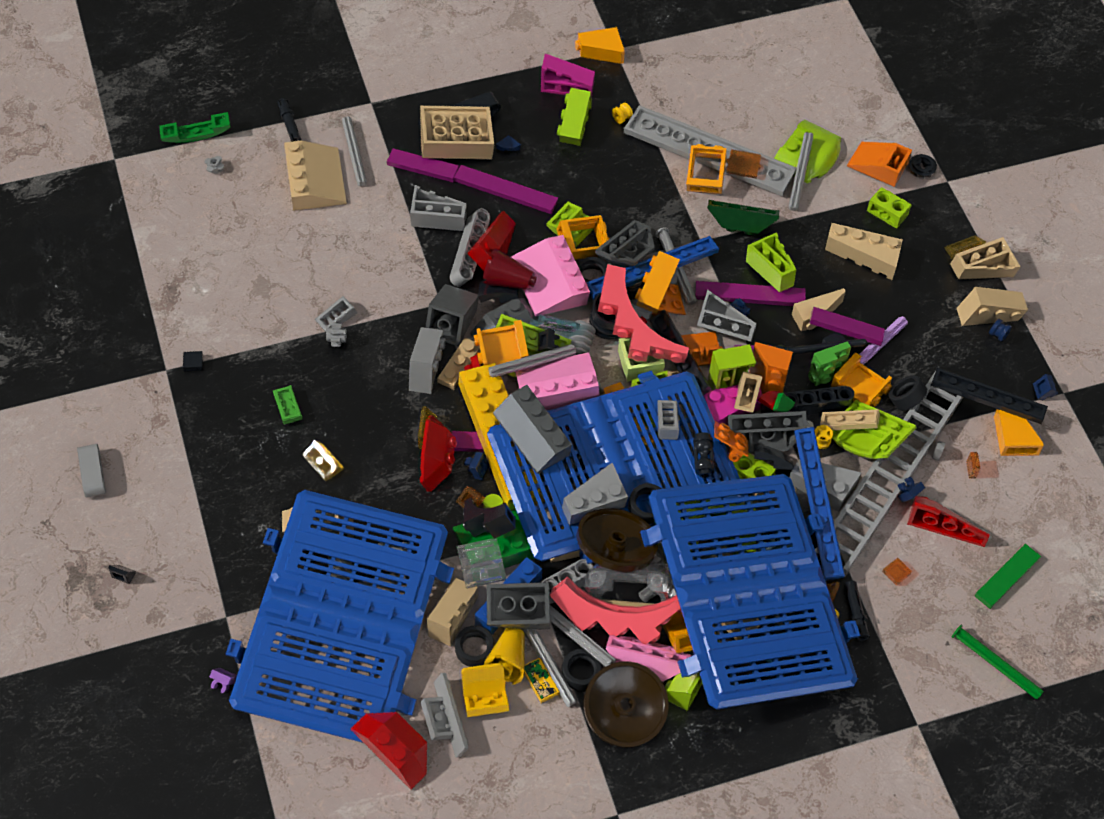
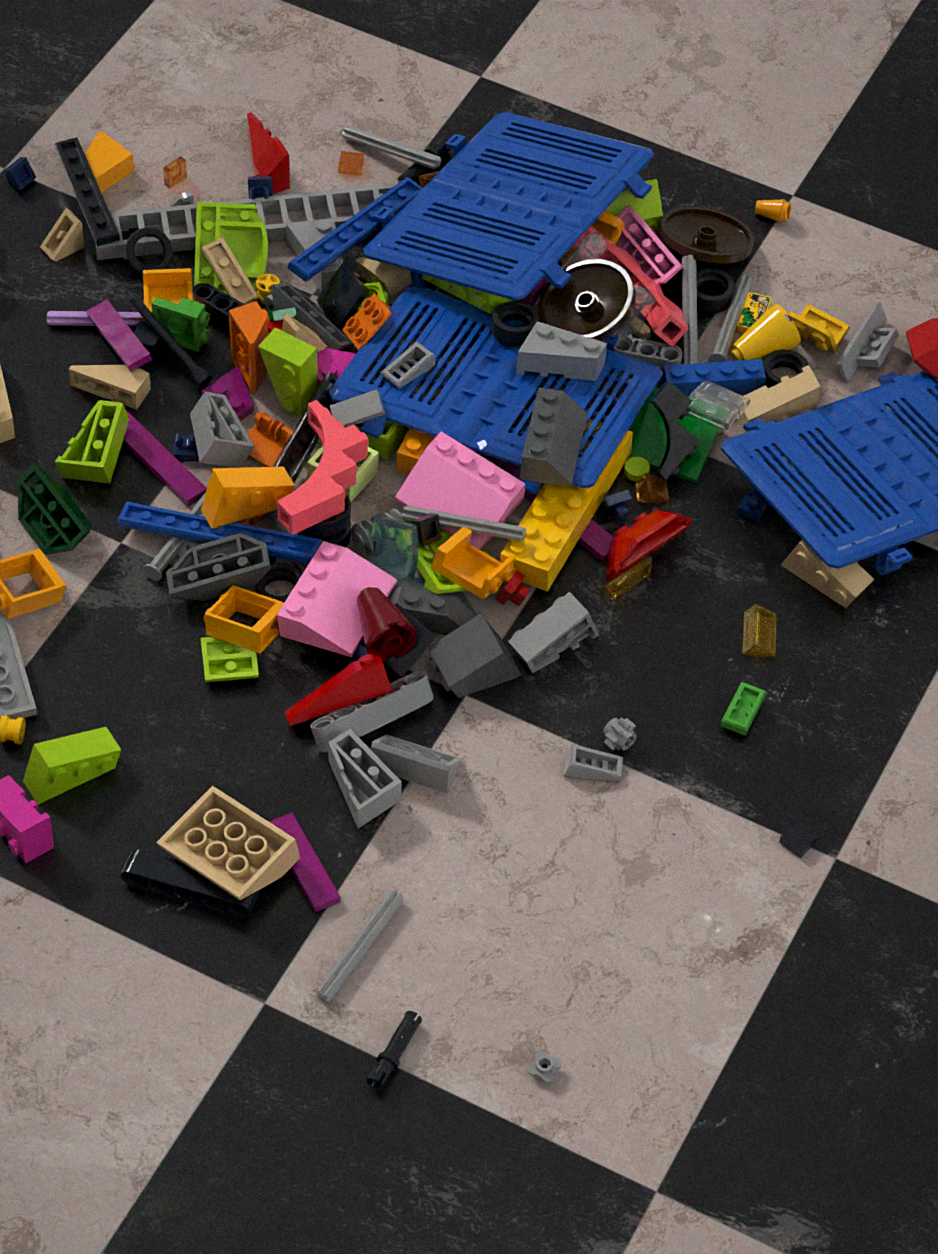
camera: 135 degrees left, 5 degrees down
(197, 131) = (518, 1136): green slope -> none
(314, 175) = (444, 949): tan slope -> none
(423, 243) = (417, 762): none -> light grey slope
(450, 375) = (516, 615): tan plate -> none
(506, 189) = (247, 755): magenta tile -> none
(508, 143) = (177, 805): dark blue tile -> none
(518, 605) = (719, 341): dark grey slope -> none
(611, 779) = (774, 209): none -> light orange cone
(662, 373) = (358, 409): none -> light grey tile
(703, 445) = (407, 322): black piece -> none
(885, 596) = (391, 147): none -> light grey axle
(964, 368) = (64, 237): none -> tan slope
(997, 662) = (365, 90): green axle -> none
(1007, 576) = (267, 96): green tile -> none

